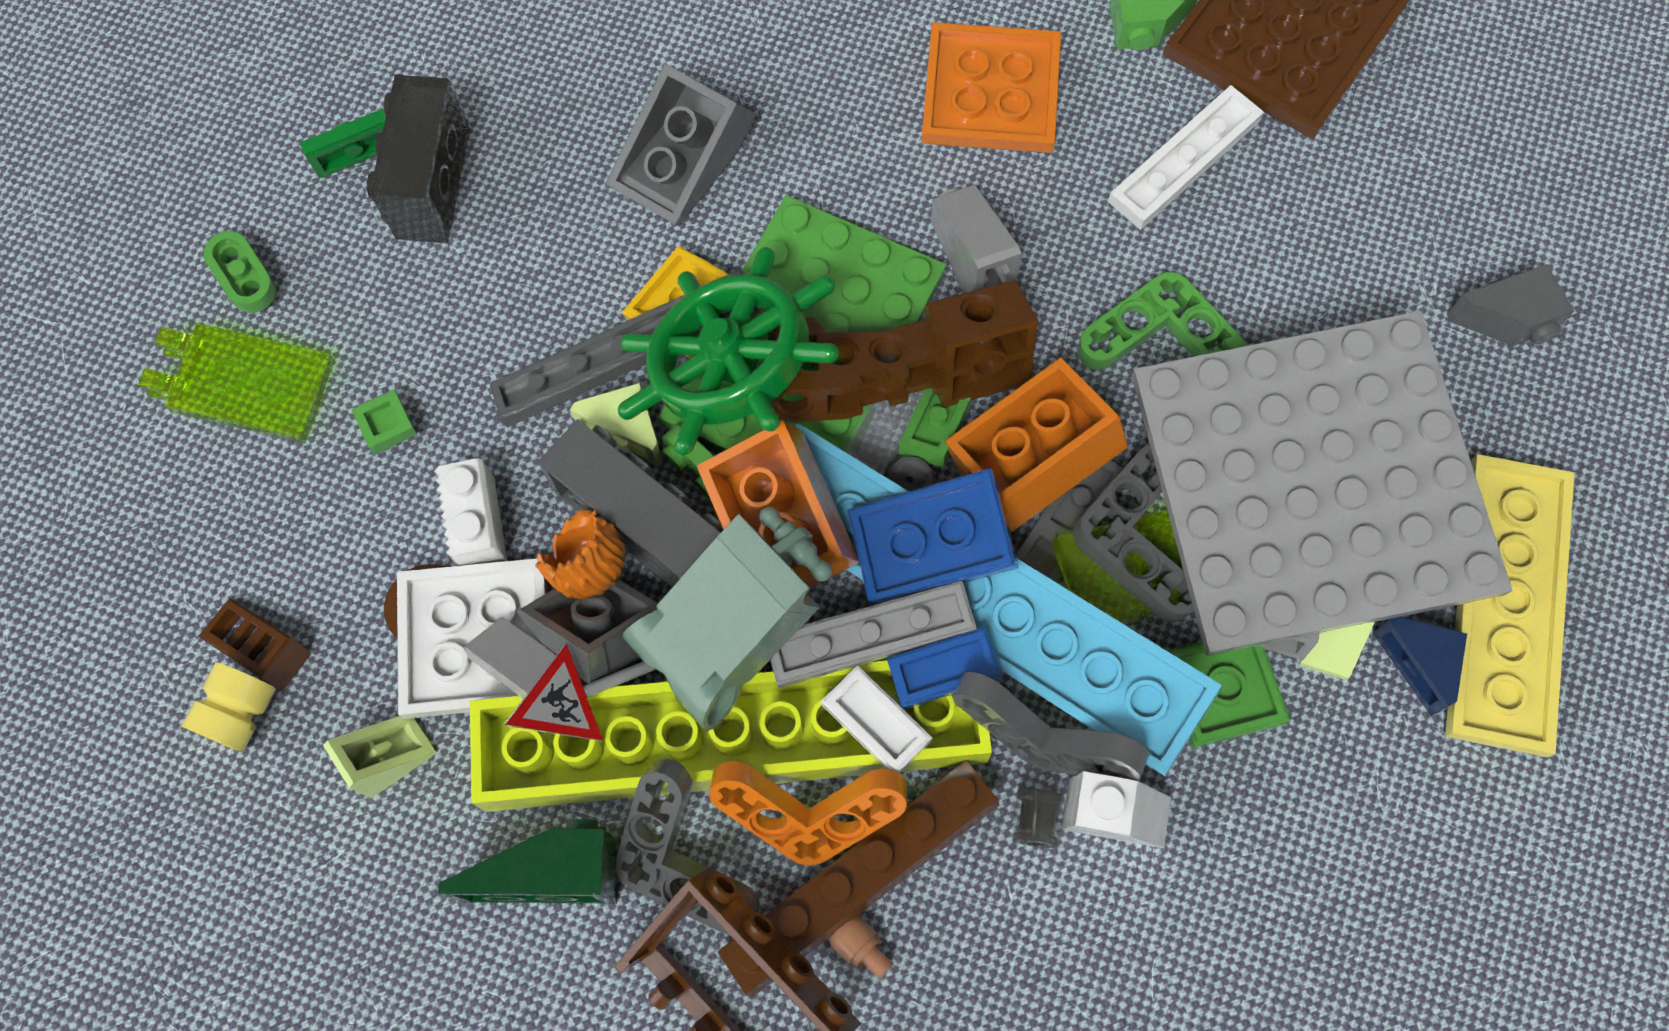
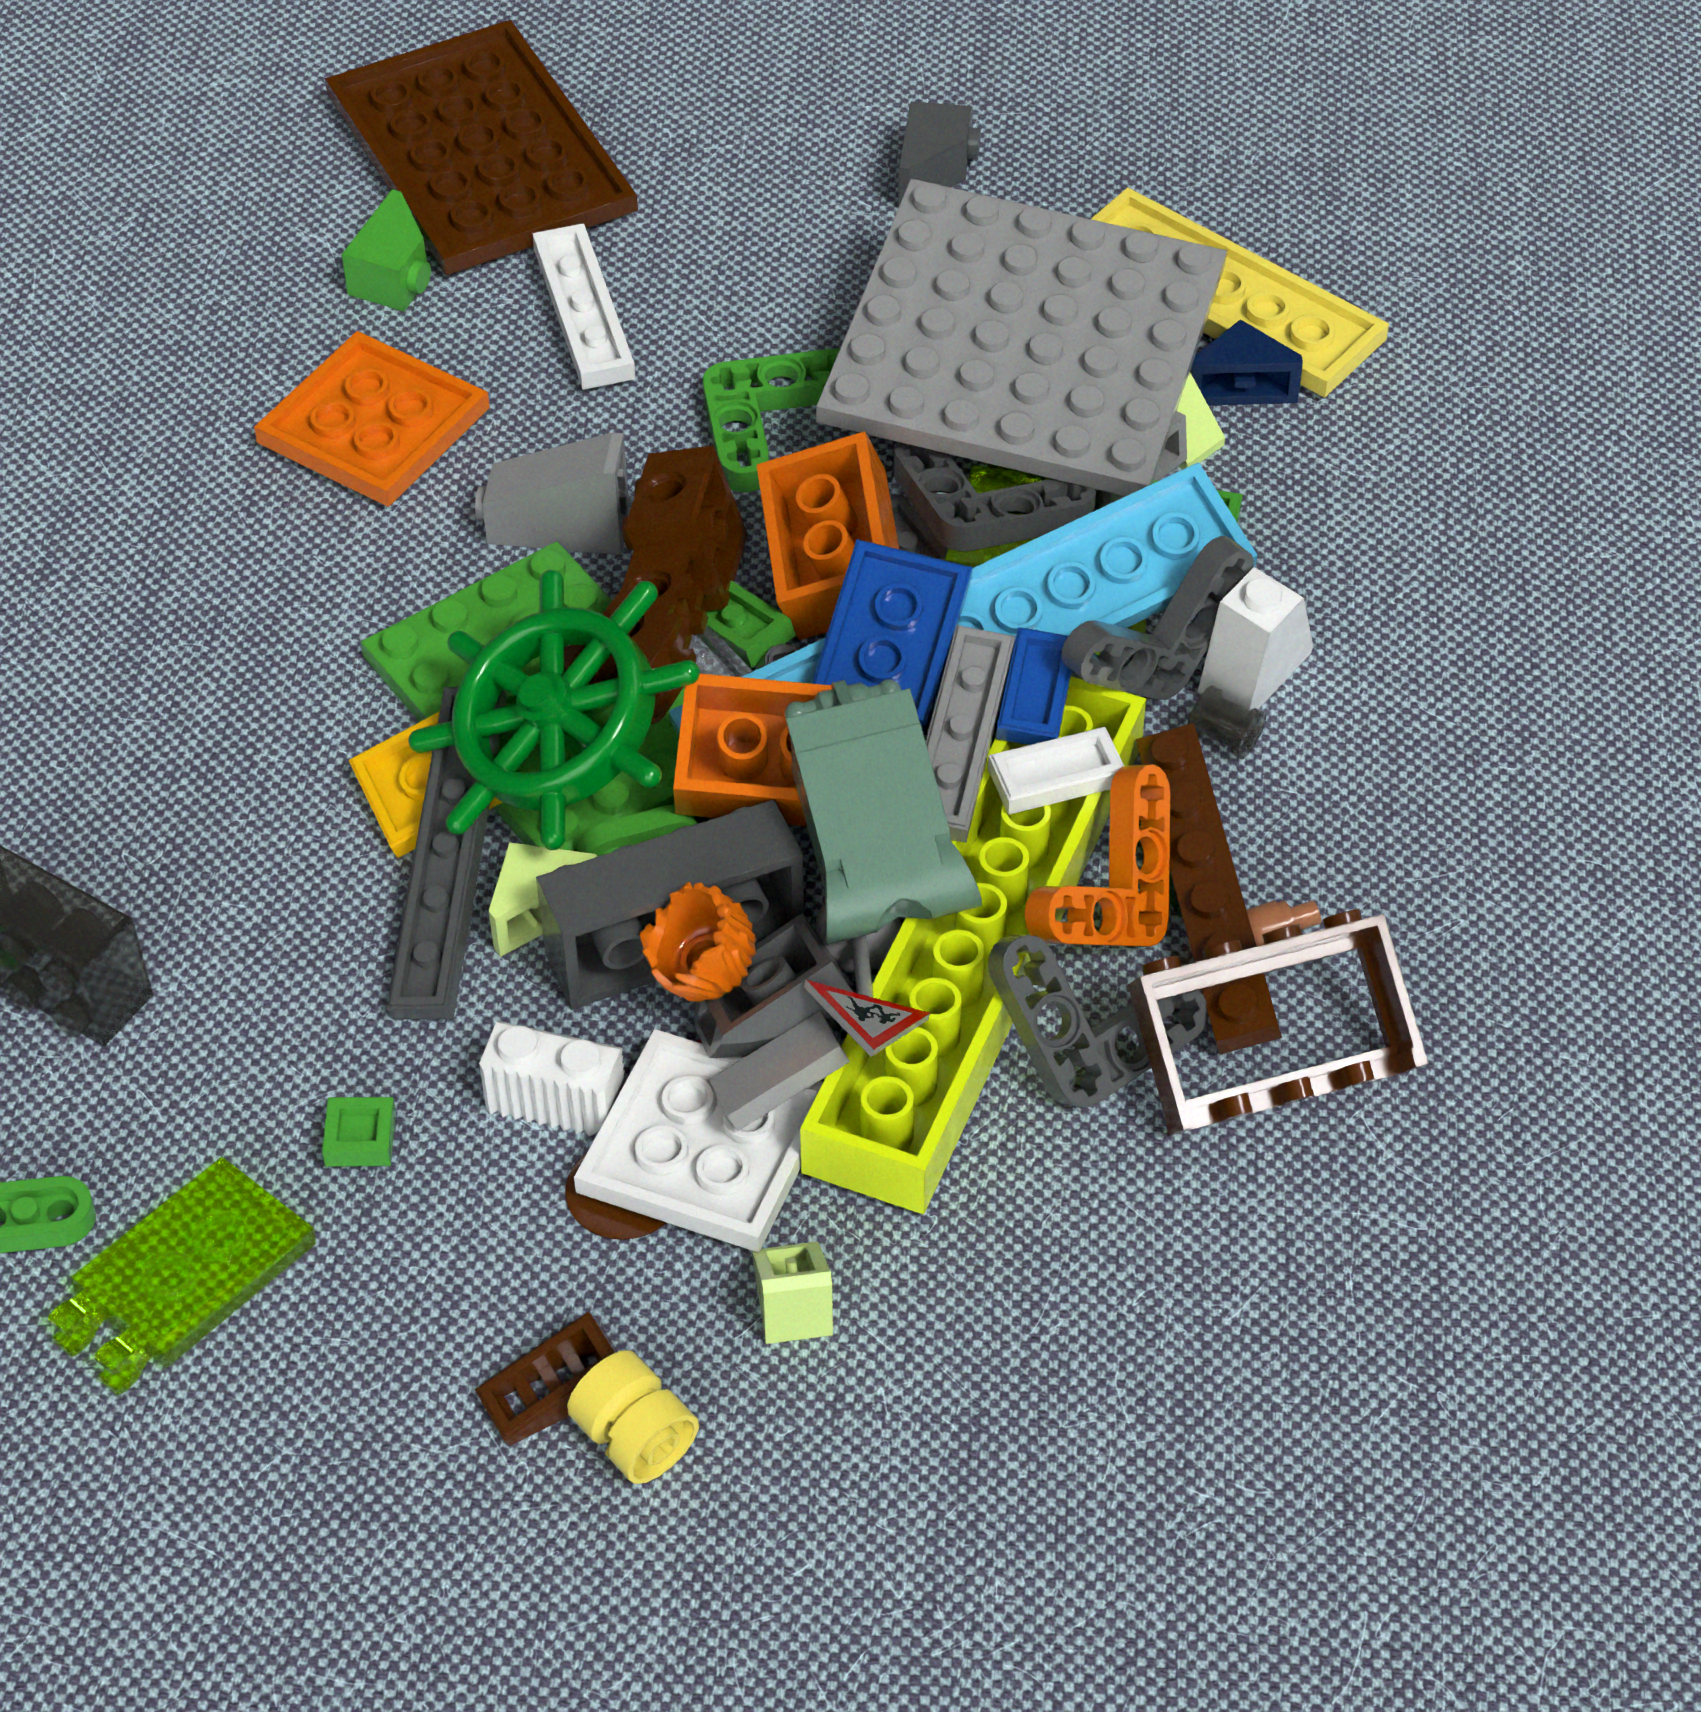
camera: 65 degrees left, 20 degrees down
(549, 868) = (1051, 1134): dark green slope -> none
(678, 145) = (220, 704): dark grey slope -> none

